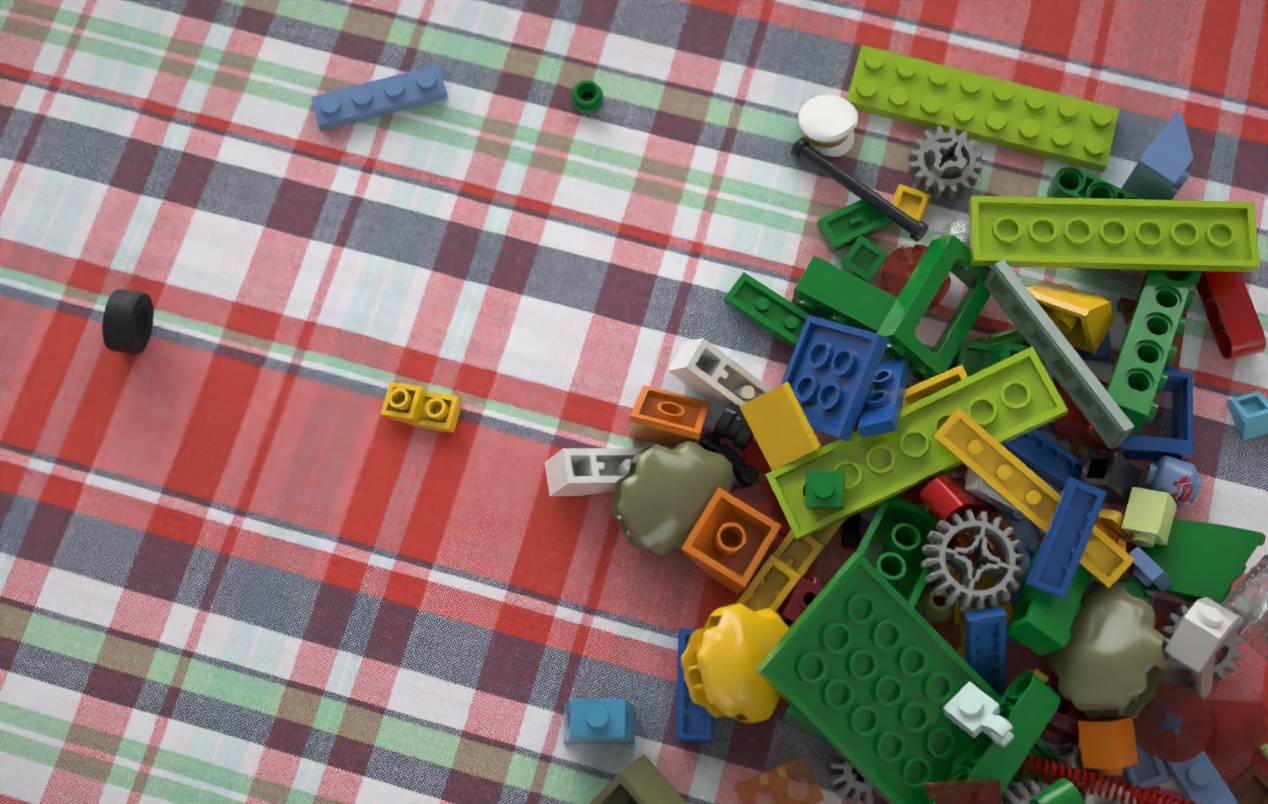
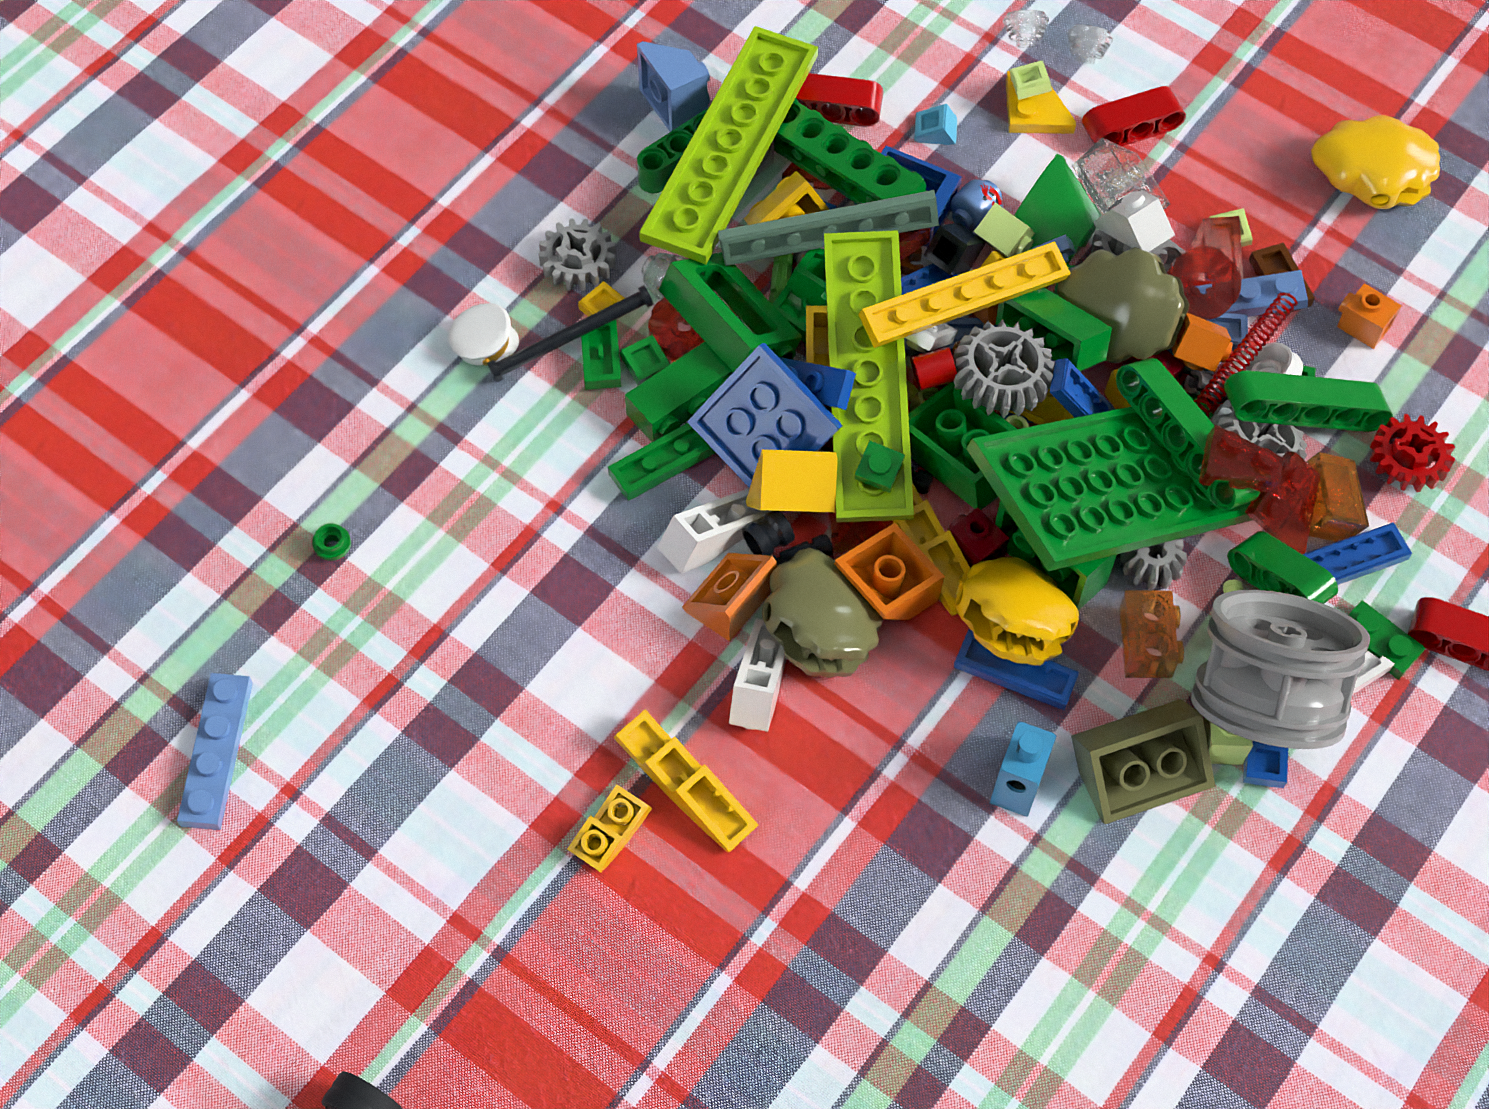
camera: 70 degrees left, 10 degrees down
(483, 449) = (686, 781): none -> yellow slope
(978, 712) = (1144, 422): light aqua plate -> none
(984, 108) = (533, 201): lime plate -> none
(1066, 538) = (1018, 279): blue plate -> none

